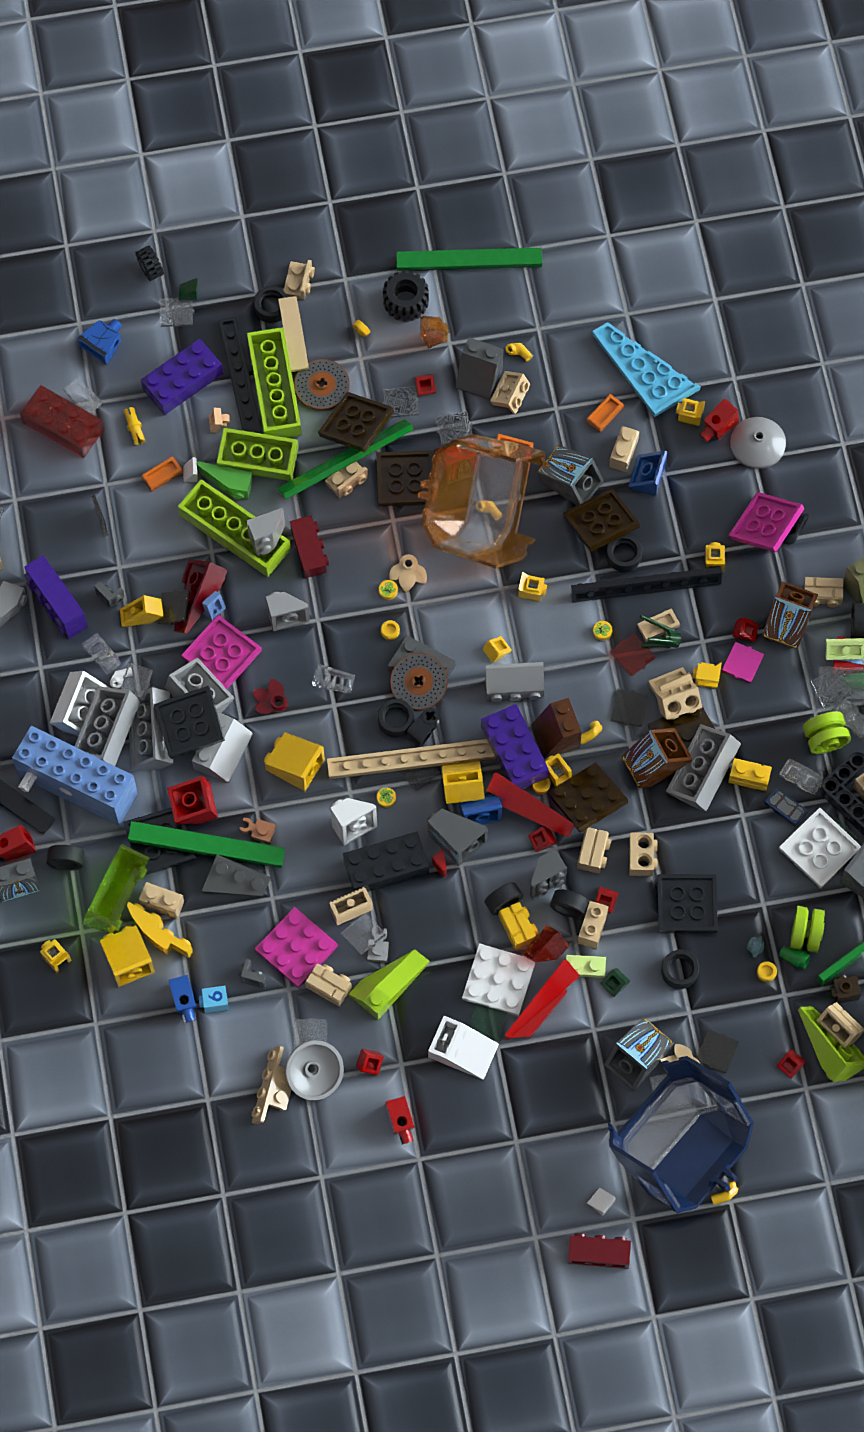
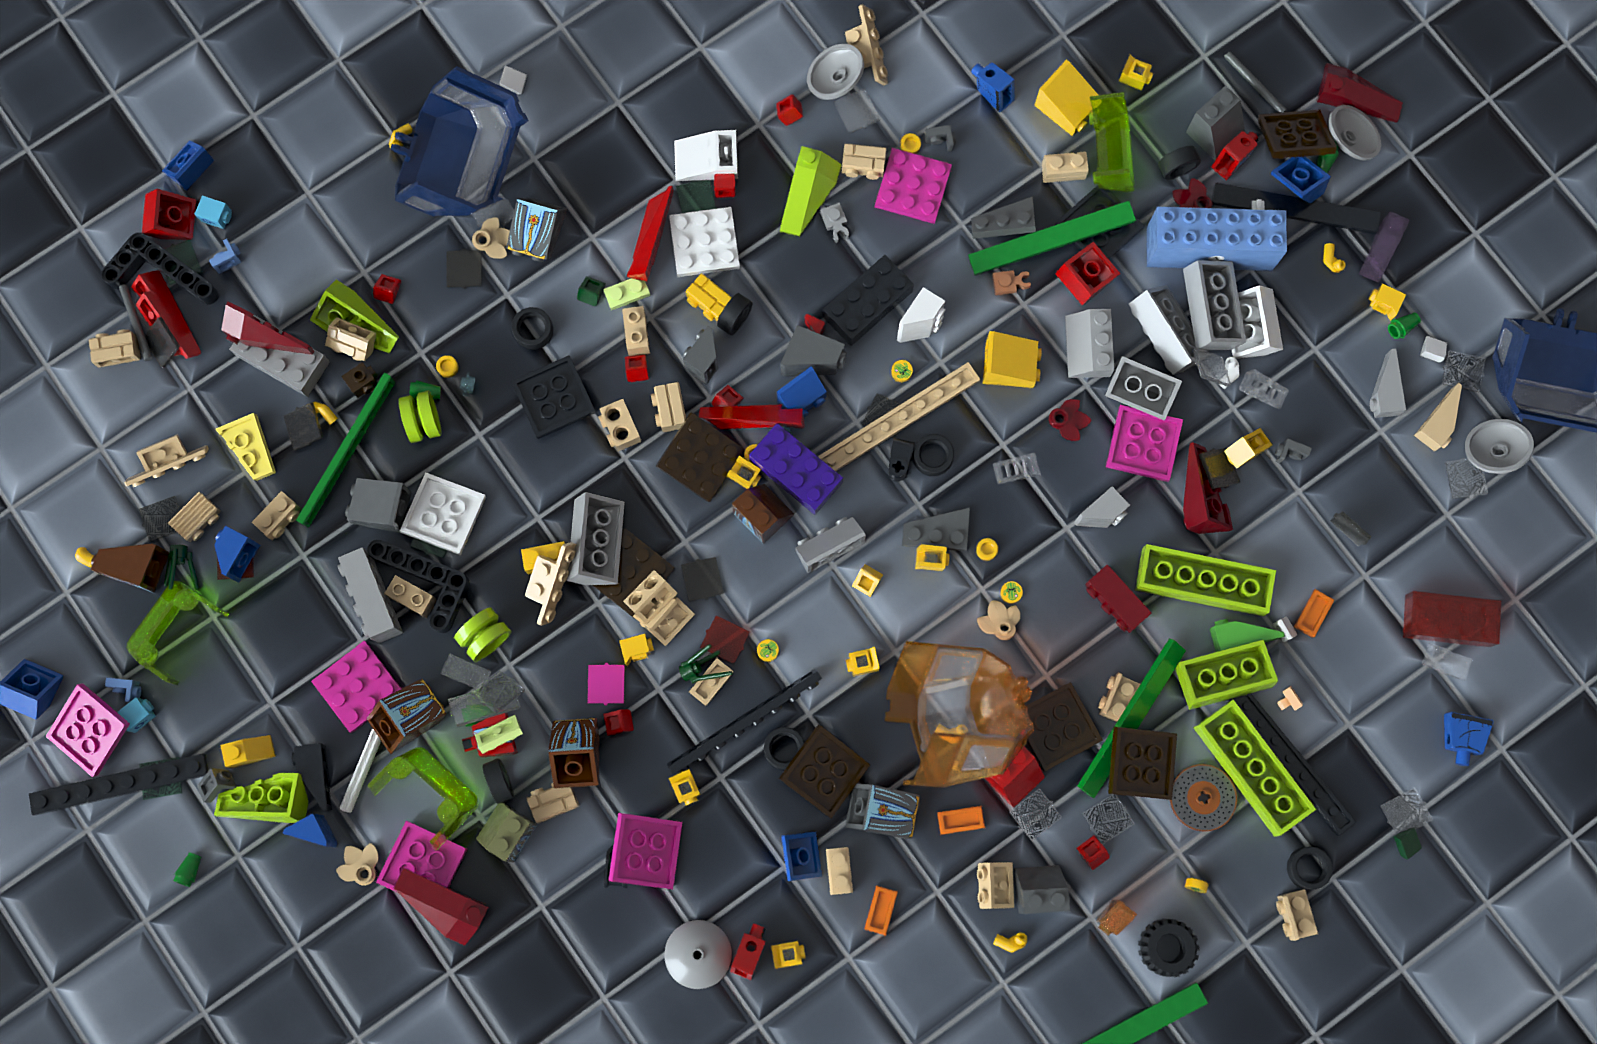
camera: 155 degrees right, 10 degrees up
(55, 597) = (1343, 417): dark purple brick -> none
(71, 831) = (1192, 196): none -> dark red plate
(134, 426) = (1374, 653): yellow pin -> none
(149, 263) = (1469, 850): black tyre -> none
(151, 927) = (1061, 137): yellow slope -> none
(182, 376) = (1356, 731): dark purple brick -> none
(189, 722) = (1133, 338): black plate -> none
(213, 605) = (1179, 484): medium blue bracket -> none
(214, 999) = (964, 99): medium azure brick -> none
(266, 530) = (1168, 569): light grey slope -> none
(280, 984) = (910, 143): none -> yellow tile
(293, 333) = (1266, 839): tan slope -> none
(351, 906) = (880, 240): tan brick -> none
(363, 934) = (855, 224): clear piece -> none
(396, 1110) = (735, 66): red torso -> none
(419, 666) = (937, 518): flat silver piece -> none
(439, 639) = (931, 557): none -> yellow window
(459, 1015) = (724, 185): none -> red slope
(463, 782) = (832, 411): yellow slope -> none
(546, 946) = (671, 285): clear red slope -> none
(569, 903) = (667, 337): black tyre -> none
(595, 729) = (726, 530): yellow arm -> none
(599, 1251) = (494, 33): dark red brick -> none
(646, 373) = (851, 978): medium azure wing -> none
(656, 757) = (646, 527): reddish brown slope -> none
(758, 749) = (547, 581): none -> bracket
(785, 806) = (496, 544): tile -> none
(802, 776) = (492, 582): clear slope -> none

